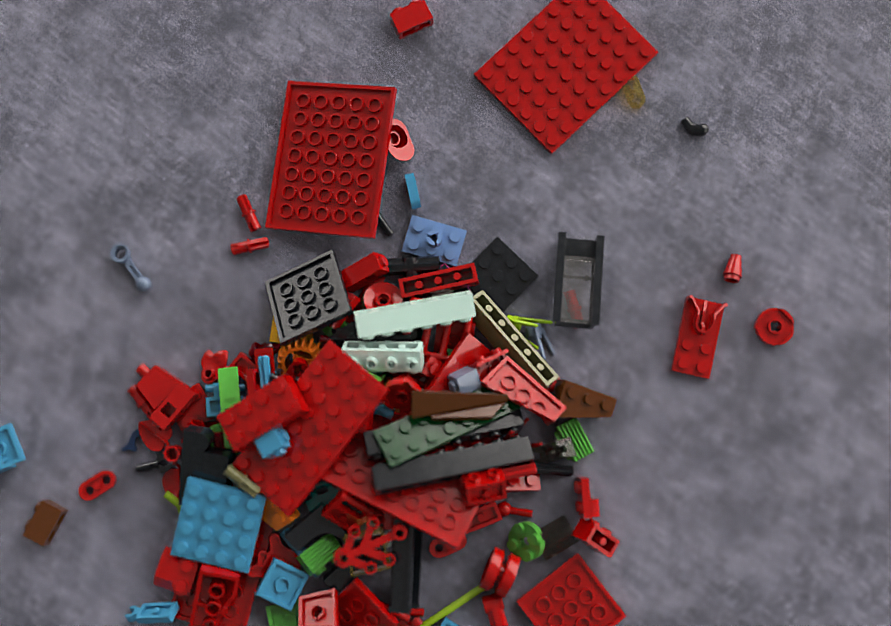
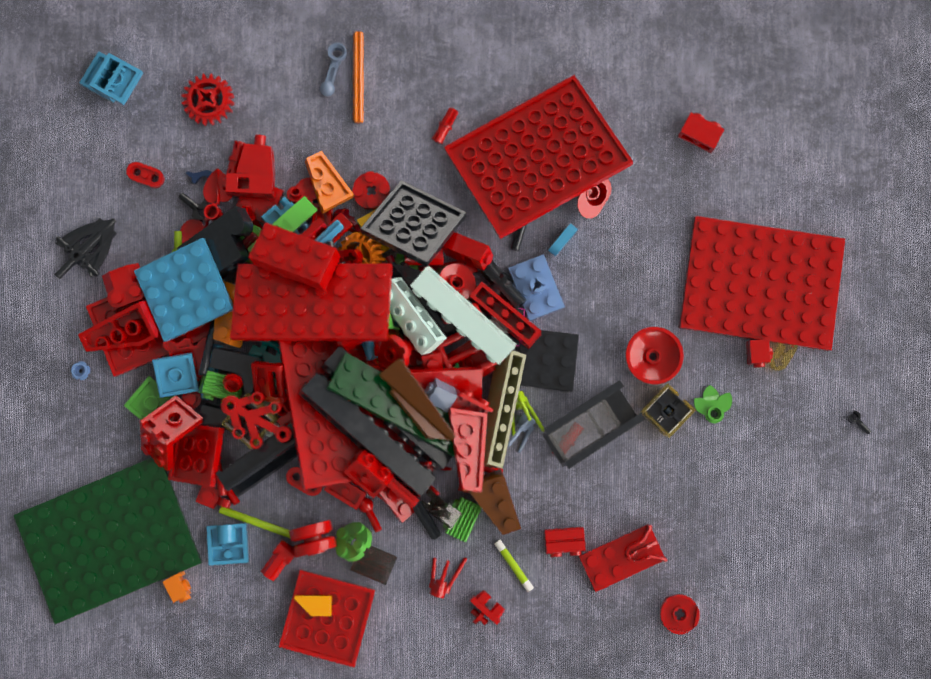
camera: 50 degrees right, 0 degrees up
(44, 522) = (87, 157): reddish brown brick -> none
(74, 379) = (203, 104): none -> red gear
(116, 557) = (101, 232): none -> black bar
(153, 613) = (80, 293): dark azure plate -> none
(154, 252) = (358, 77): none -> orange axle
(220, 342) = (327, 183): none -> orange wing
(242, 481) = (231, 281): olive axle -> none
(244, 307) = (360, 191): none -> red plate
(249, 245) = (420, 146): red axle -> none
(273, 443) = (277, 282): dark azure brick -> none
(282, 542) = (207, 350): none -> black bar
(312, 585) = (192, 399): none -> red plate
(325, 542) = (232, 382): none -> red plate
(554, 609) = (316, 604): none -> light orange tile
(560, 177) = (666, 349): none -> red dish
(585, 506) = (416, 568): red plate -> none
(595, 537) = (397, 594): red brick -> none
(610, 213) = (667, 411): none -> piece
(614, 499) = (439, 587): none -> red plant
(618, 109) = (758, 353): none -> red brick
(629, 173) = (713, 401): none -> bright green plate
(640, 427) = (513, 565): none -> lime bar
(651, 372) = (564, 540): none -> red brick
(666, 472) = (493, 614): none -> red hips
(694, 129) = (790, 426): black arm -> none
(729, 74) = (859, 422): none -> black hand
(733, 269) = (700, 545): red cone -> none

